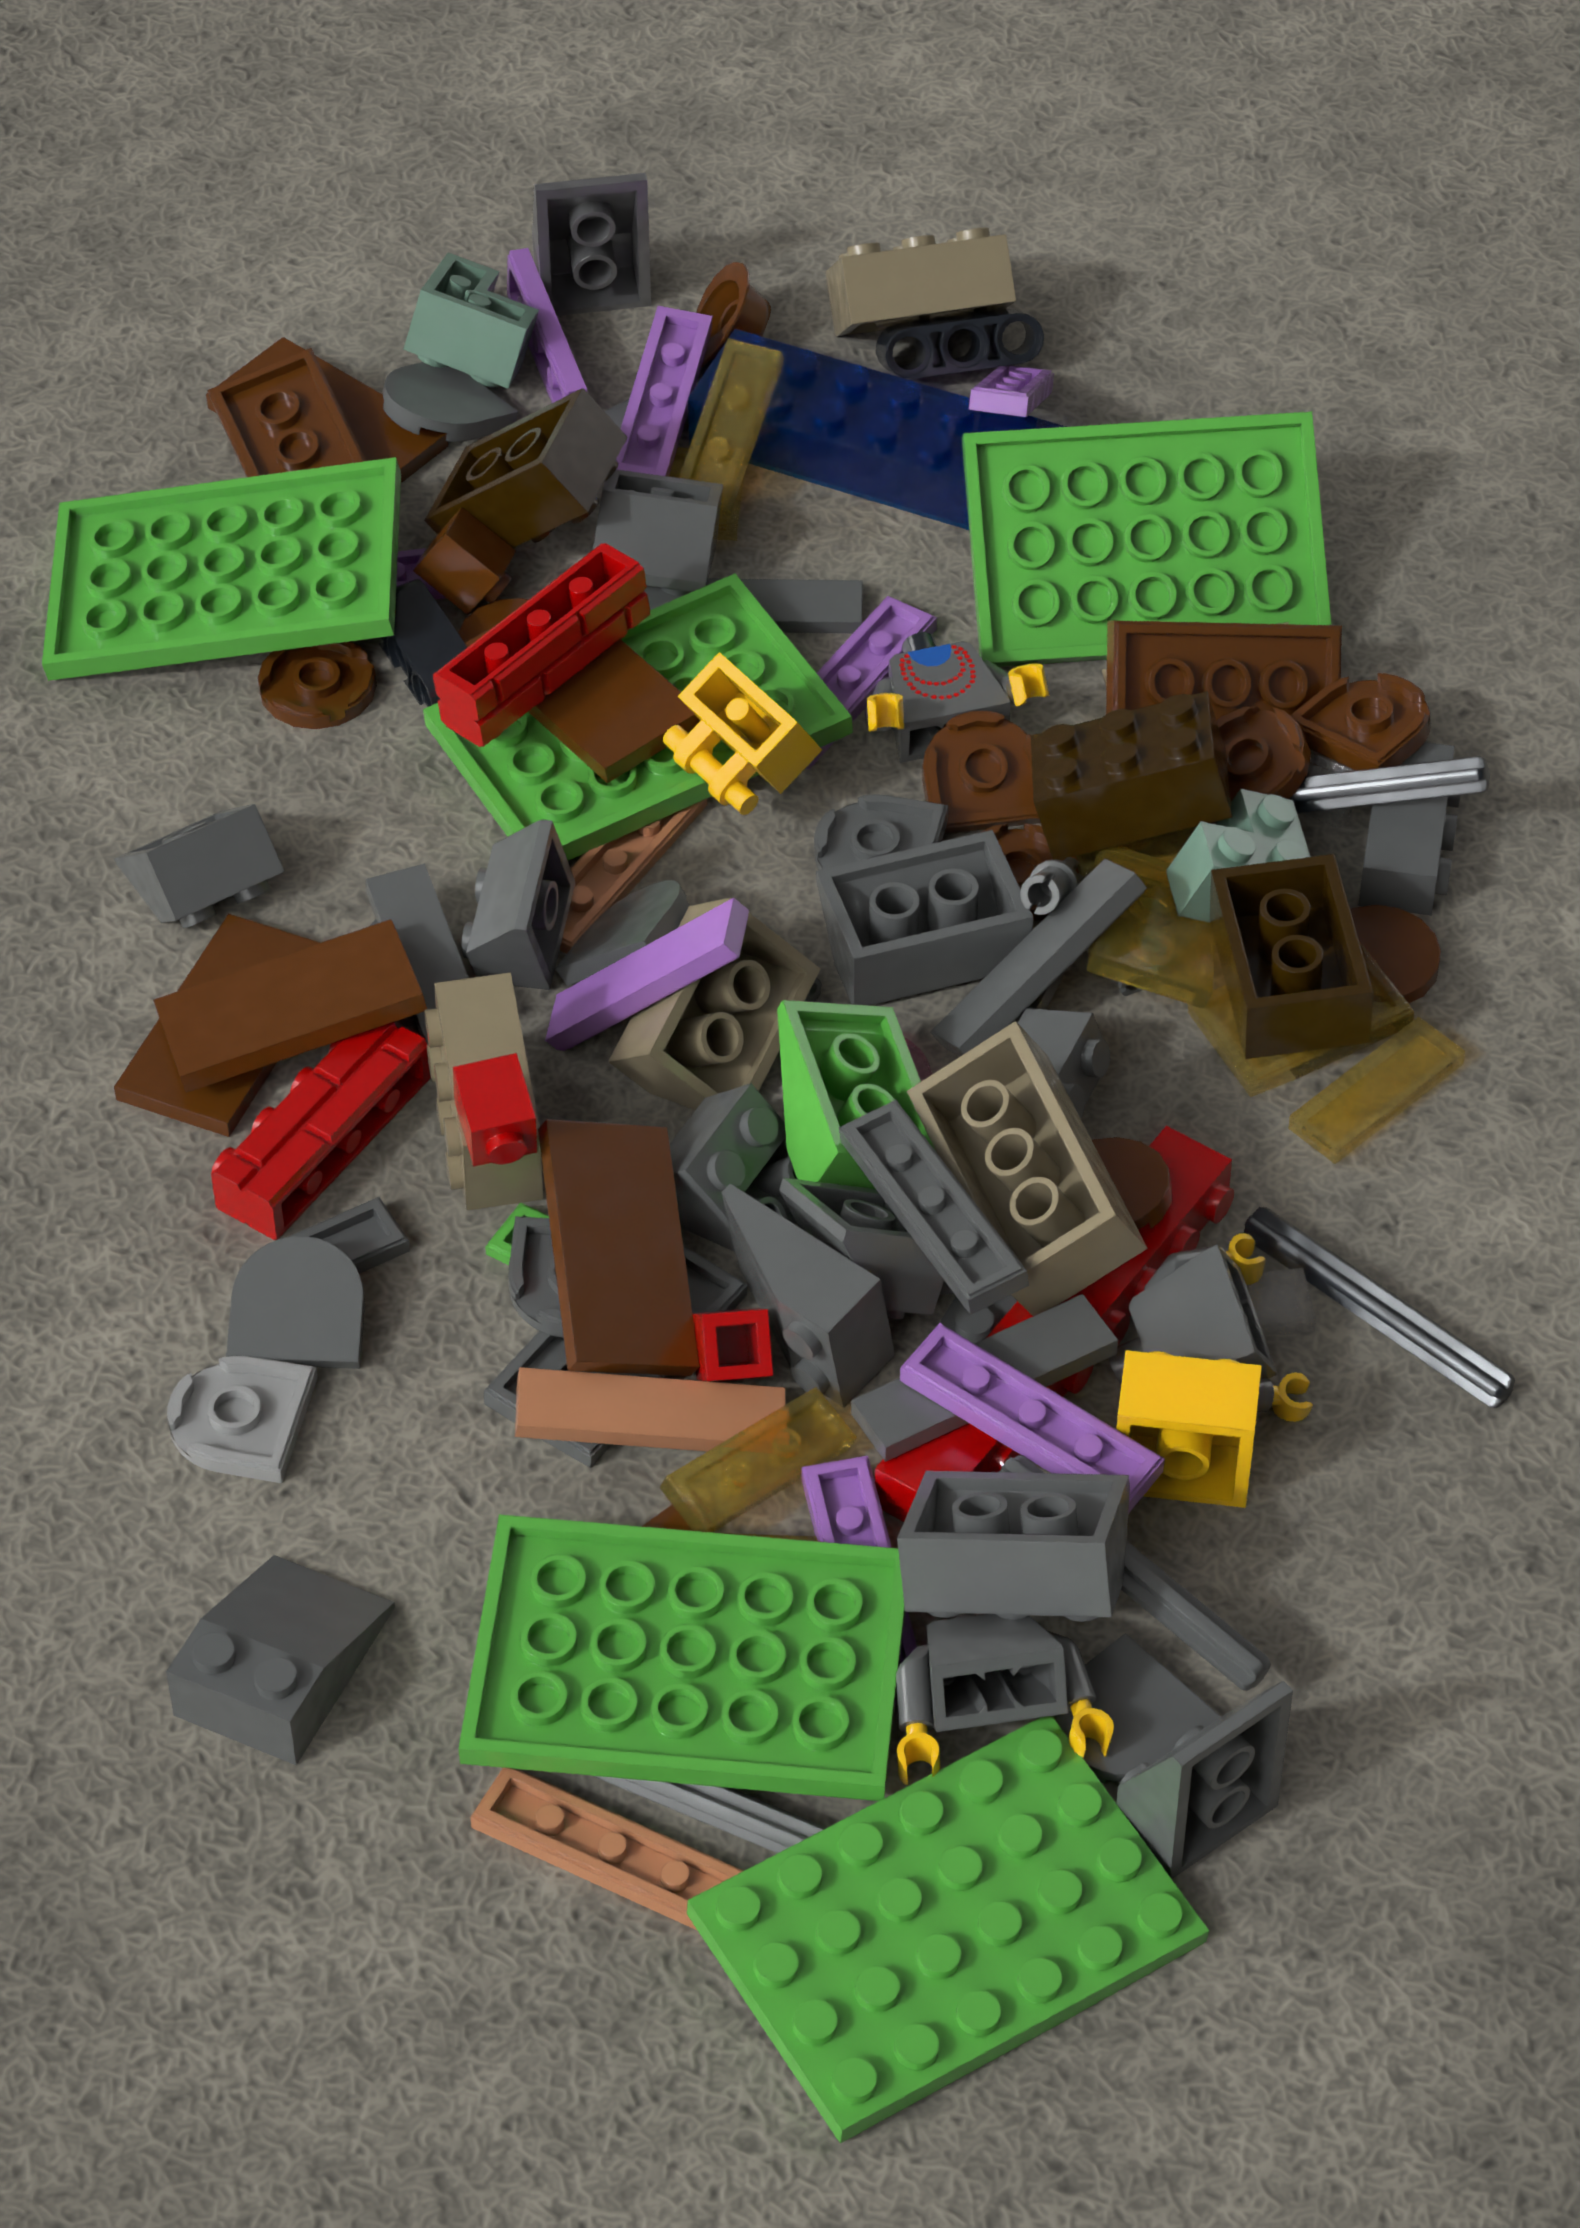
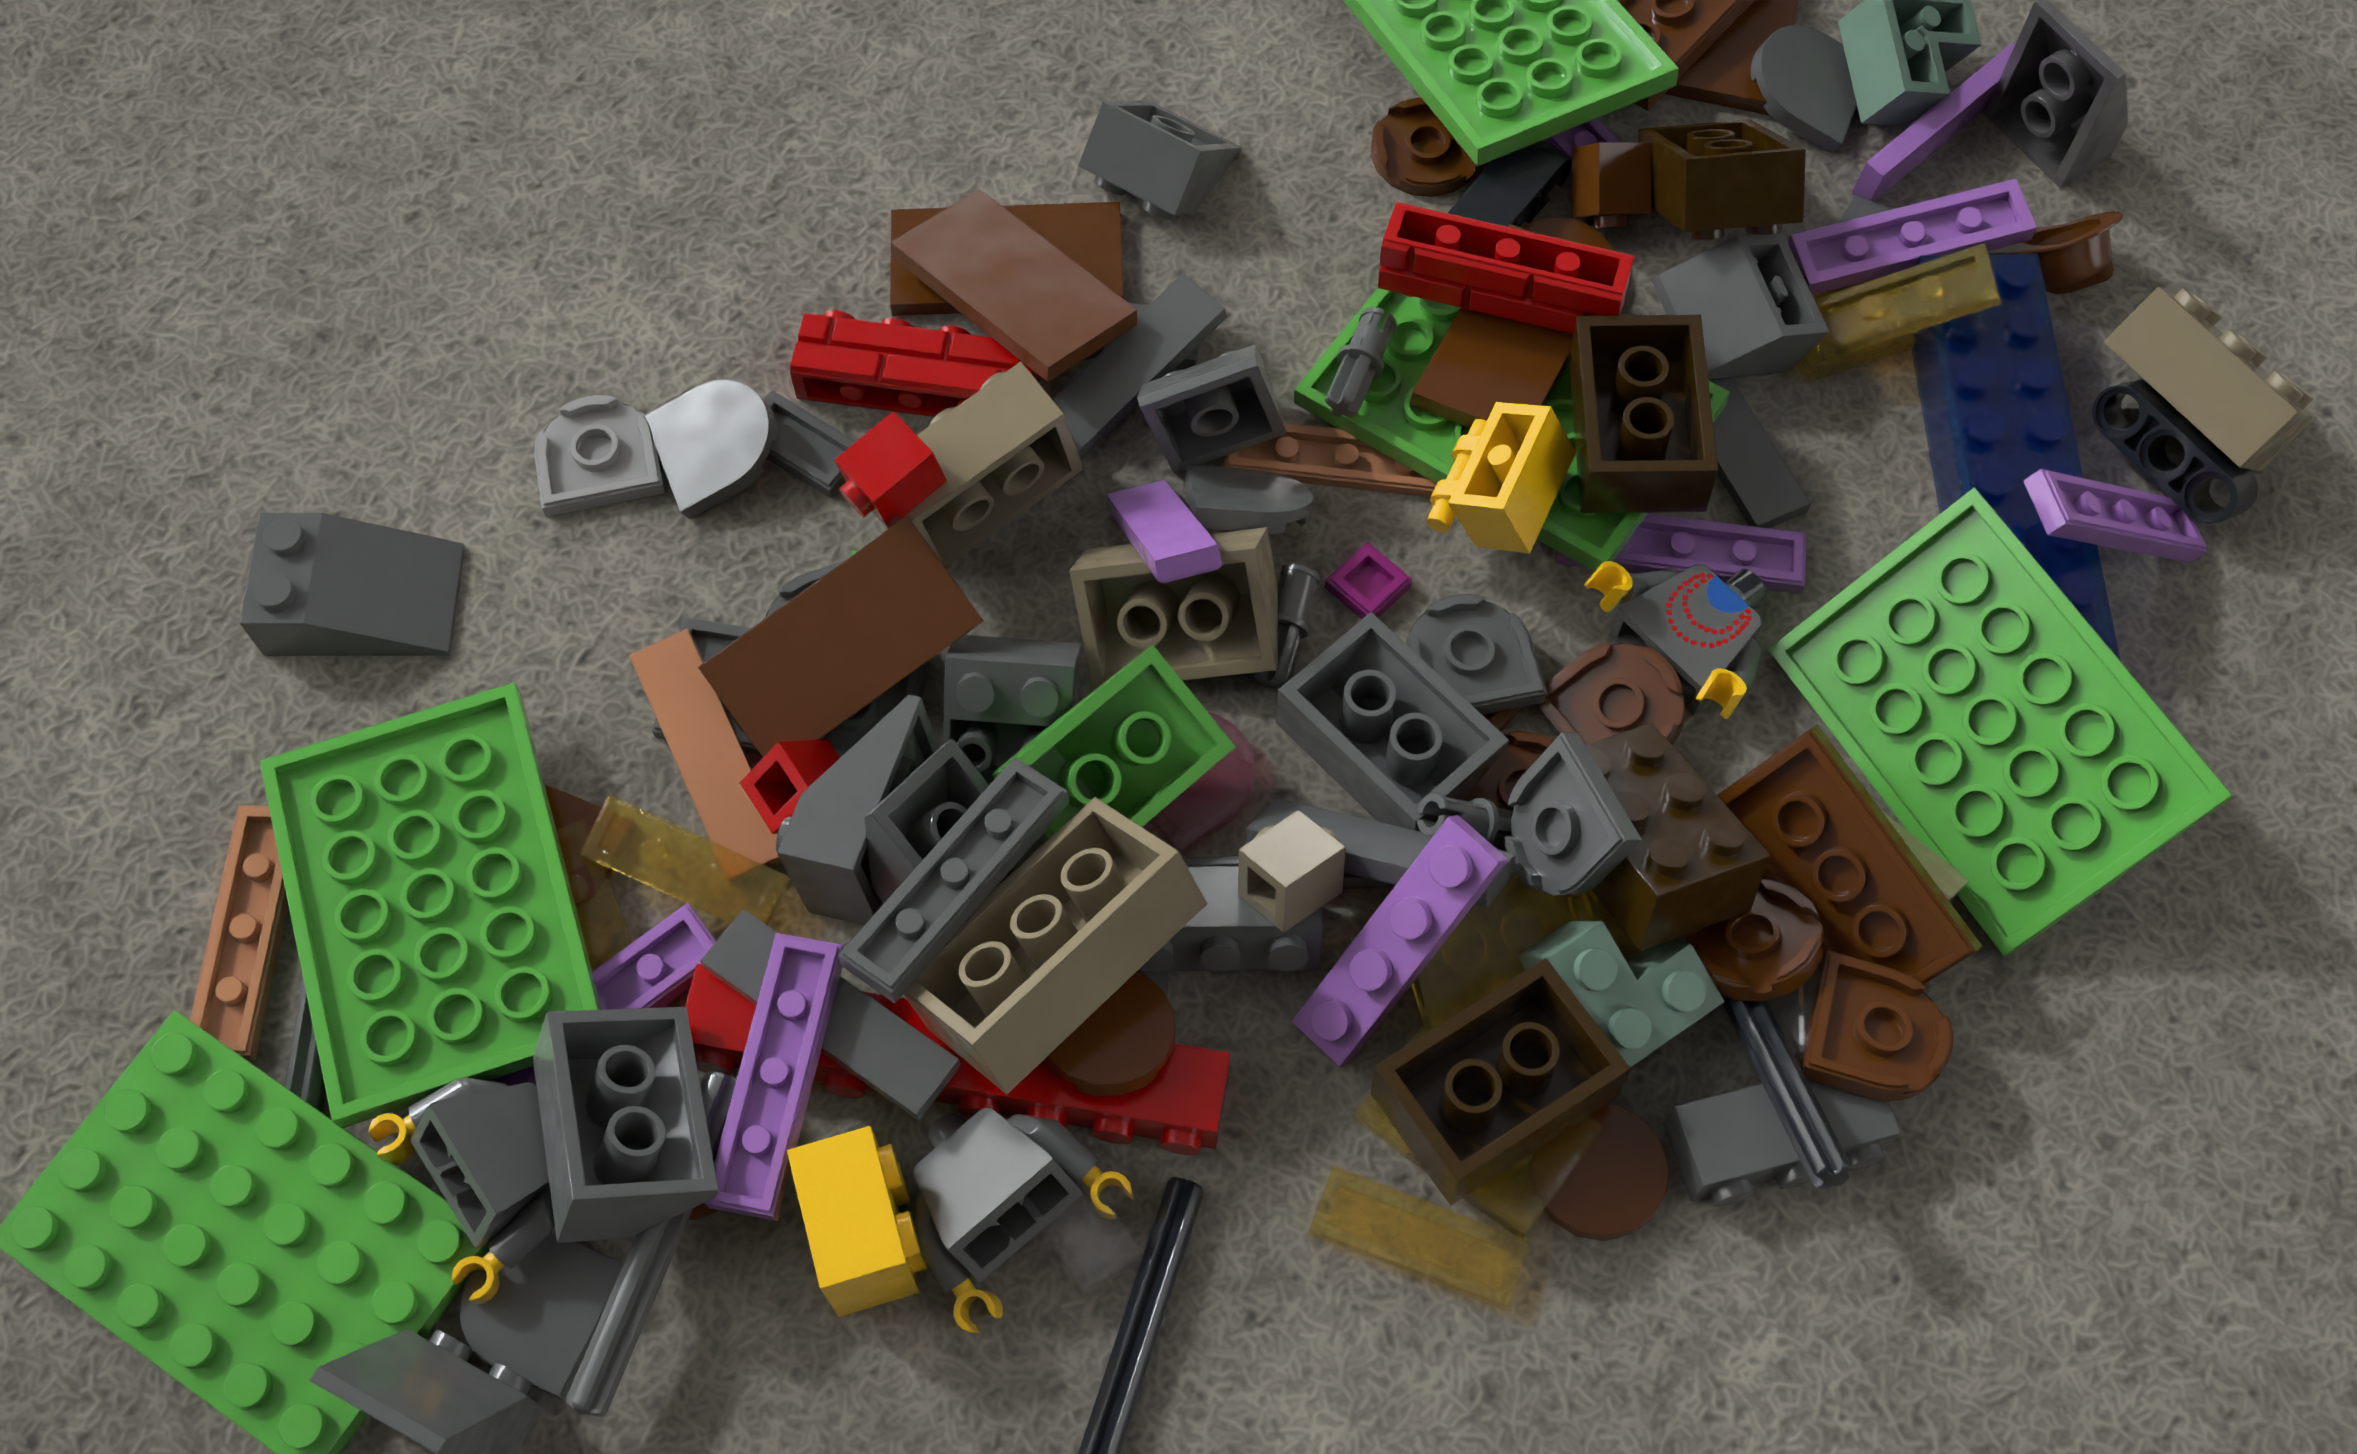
camera: 65 degrees right, 15 degrees up
(547, 792) = (1360, 363): none -> dark grey axle
(753, 608) = (1642, 414): none -> dark brown brick
(758, 890) = (1368, 582): none -> magenta tile
(1038, 1001) = (1291, 870): none -> dark tan brick
(1104, 804) = (1567, 822): none -> dark grey tile
(1135, 968) = (1399, 940): none -> medium lavender plate

